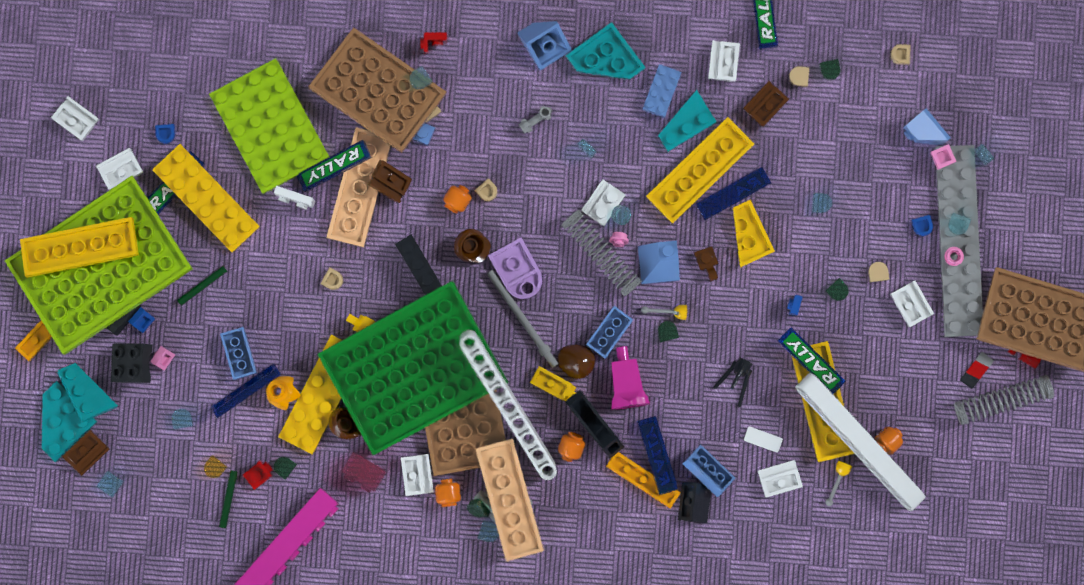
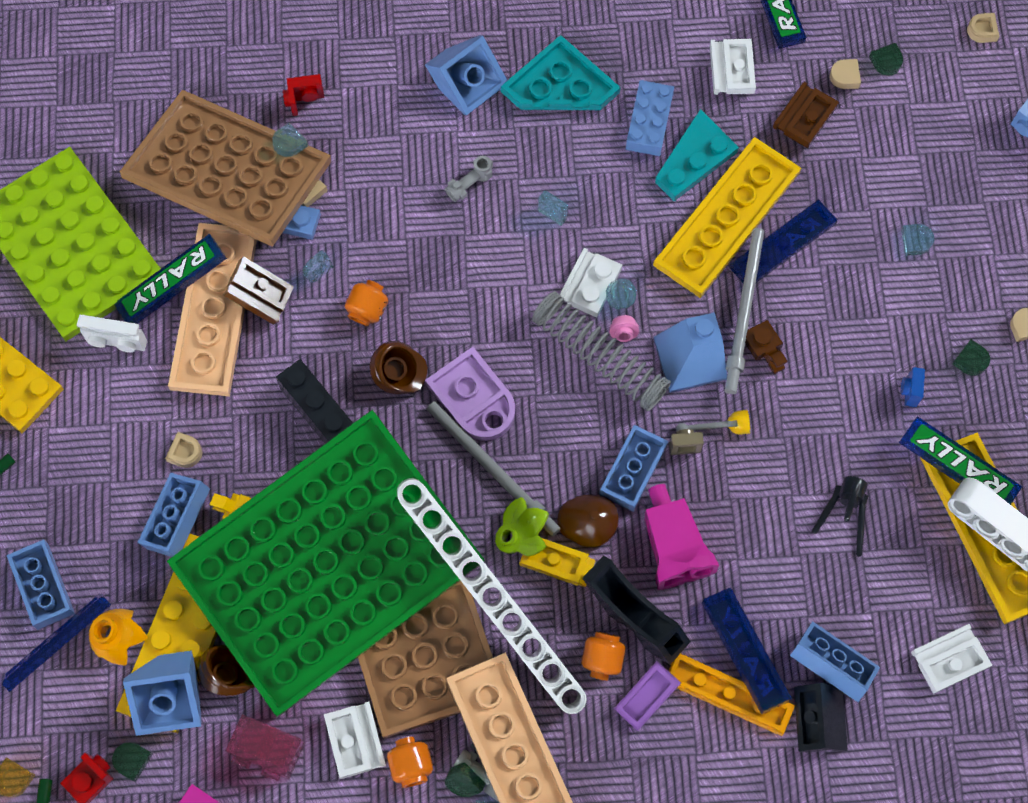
camera: 10 degrees left, 15 degrees down
(309, 434) = (164, 694): none -> medium blue slope
(323, 322) = (174, 515): none -> medium blue piece
(428, 168) = (317, 266): none -> clear light blue tile
(487, 191) = (410, 289): tan tile -> none
(536, 362) = (525, 526): none -> lime plate
(593, 474) = (647, 695): none -> medium lavender tile
(644, 320) = (686, 442): none -> dark tan plate
(667, 331) = (724, 456): clear green tile -> none
(685, 272) = (736, 362): none -> light grey bar
(750, 234) = (822, 296): yellow wing -> none
(763, 439) = (909, 601): white sticker -> none

